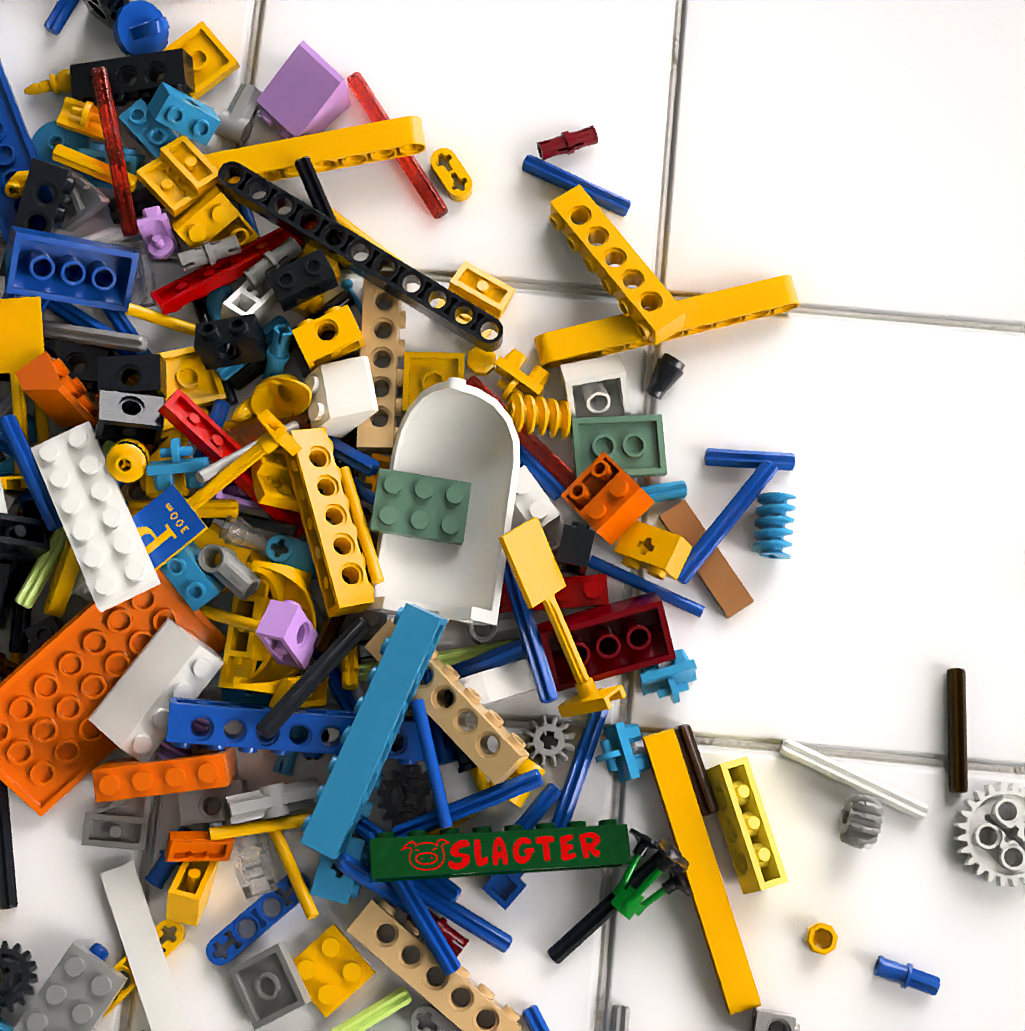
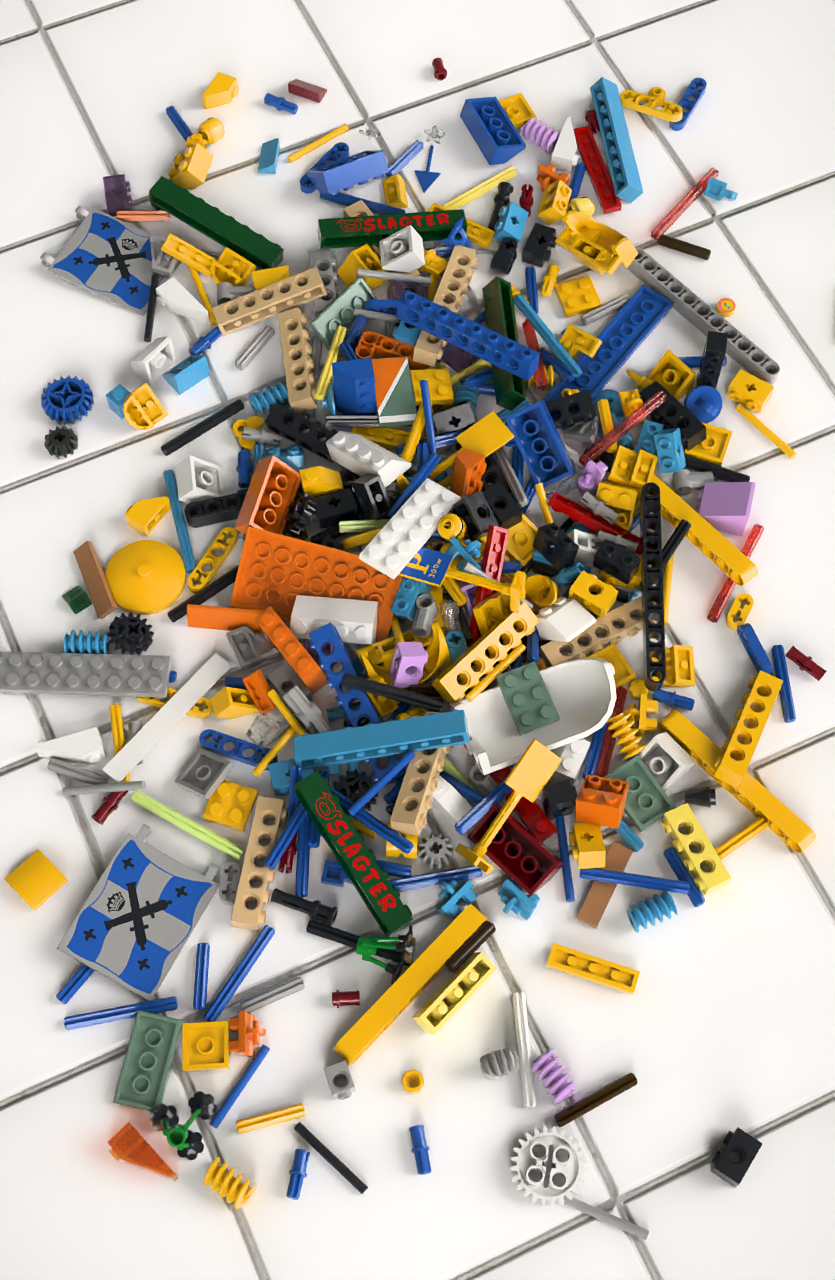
camera: 60 degrees right, 15 degrees down
(55, 834) = (222, 618): none -> orange slope
(72, 39) = (673, 375): none -> yellow slope
(243, 75) = (718, 471): none -> black axle
(514, 190) = (754, 648): none -> blue beam
(521, 326) = (673, 699): none -> blue axle
(537, 939) = (313, 909): none -> black pin
(673, 963) = (345, 998): none -> dark red pin
(740, 365) = (741, 837): none -> yellow axle
(771, 418) = (684, 818): none -> light yellow brick
(802, 638) = (593, 968): none -> yellow plate
(908, 763) = (554, 1077): none -> lavender piece

